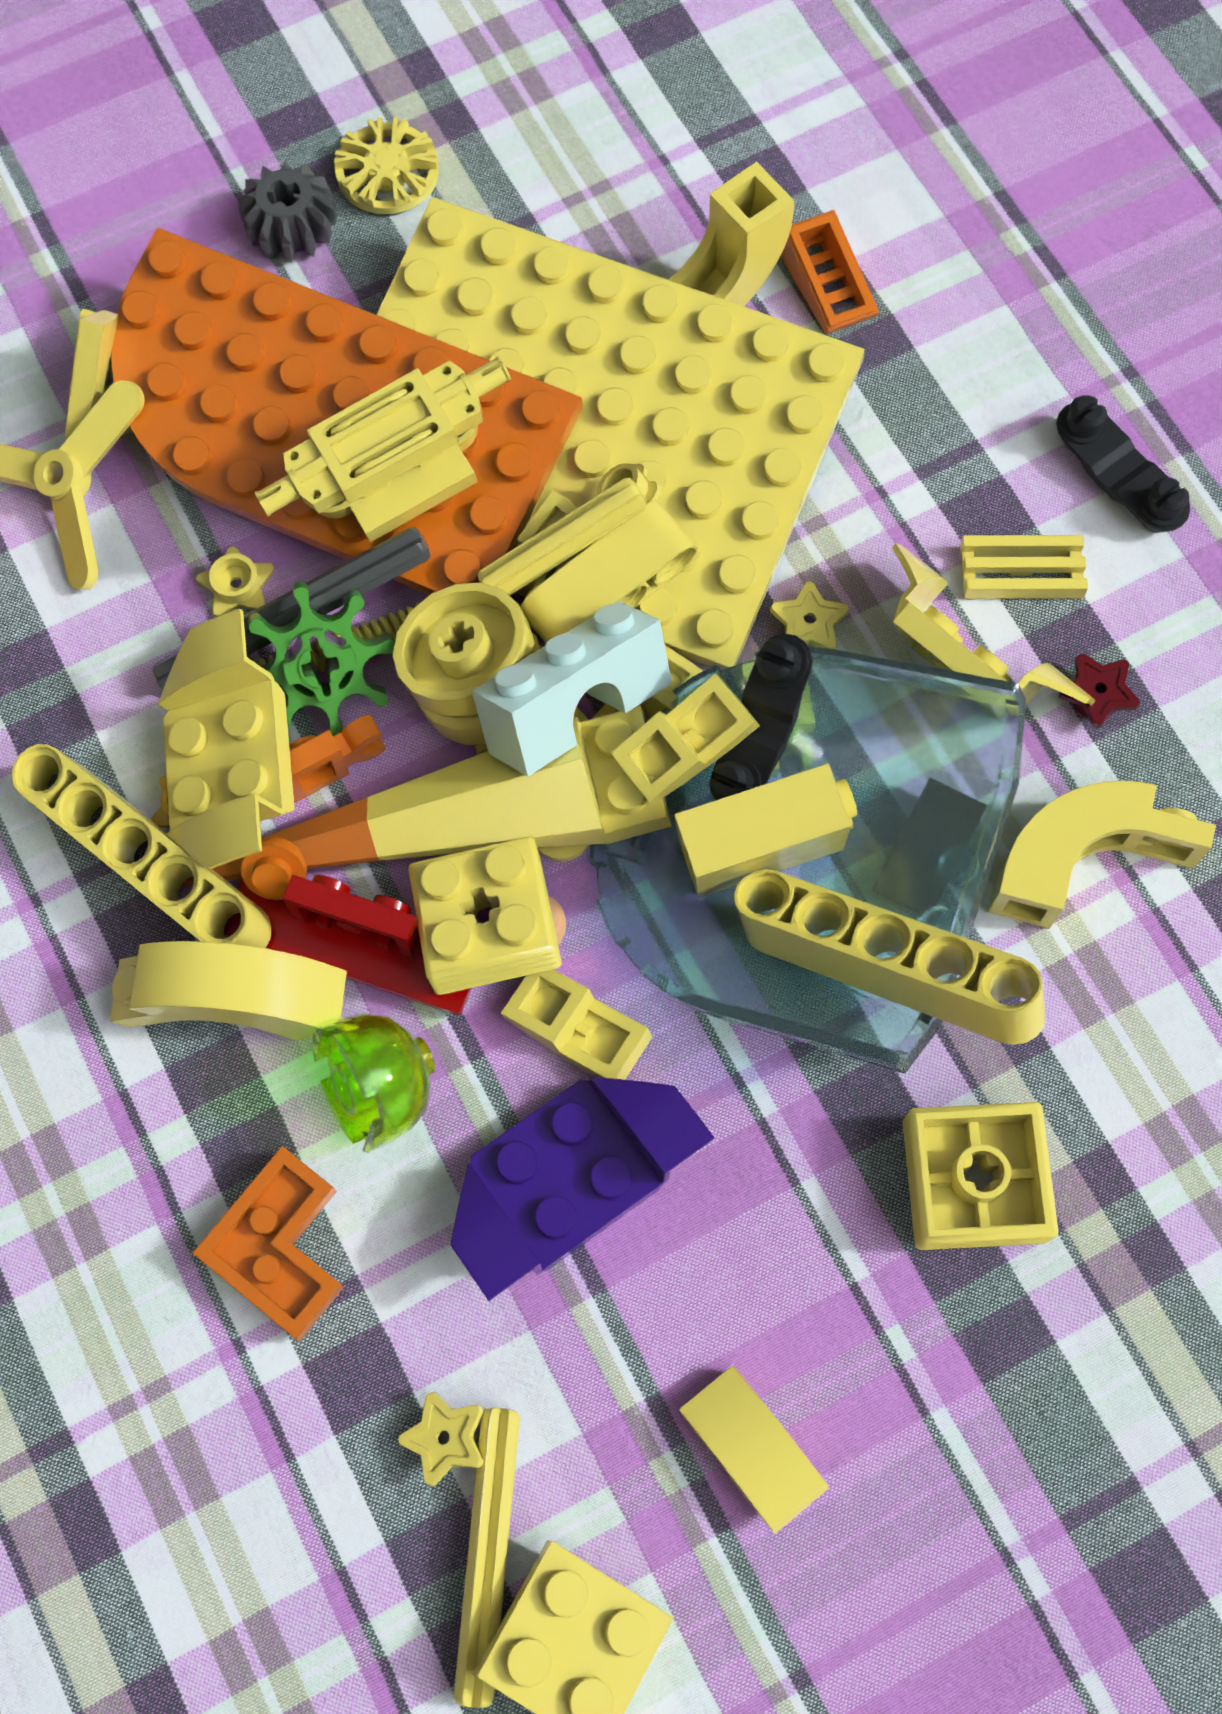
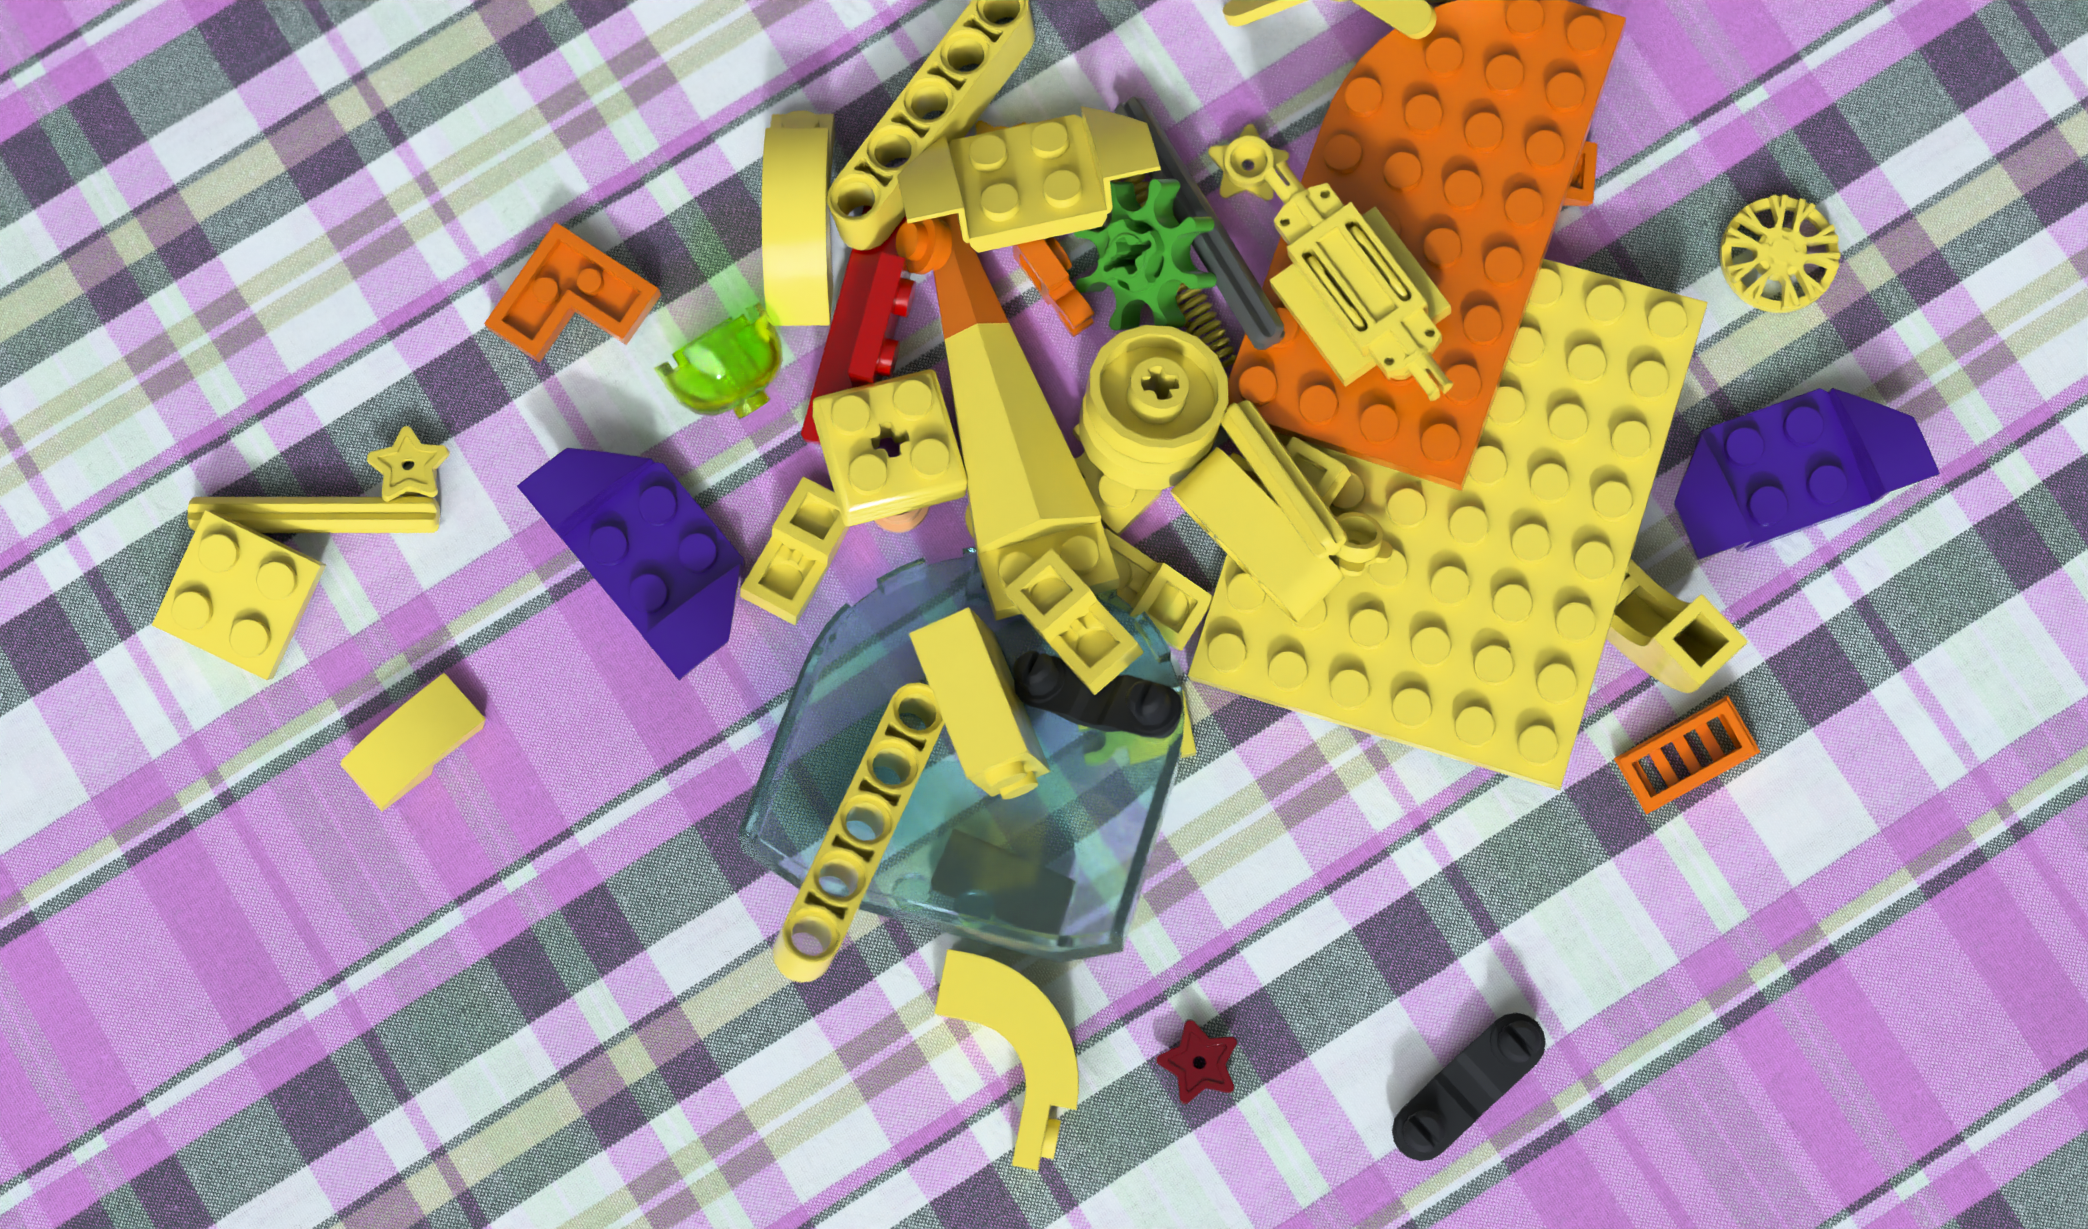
camera: 90 degrees right, 10 degrees up
(287, 211) = (1695, 130): dark grey gear -> none
(532, 704) = (1098, 468): light aqua arch -> none
(577, 157) = (1796, 469): none -> dark purple piece
(810, 602) = (1238, 764): light yellow plate -> none
(937, 639) = (1201, 894): light yellow piece -> none
(1007, 1143) = (636, 912): light yellow brick -> none
(1022, 557) = (1334, 926): light yellow tile -> none

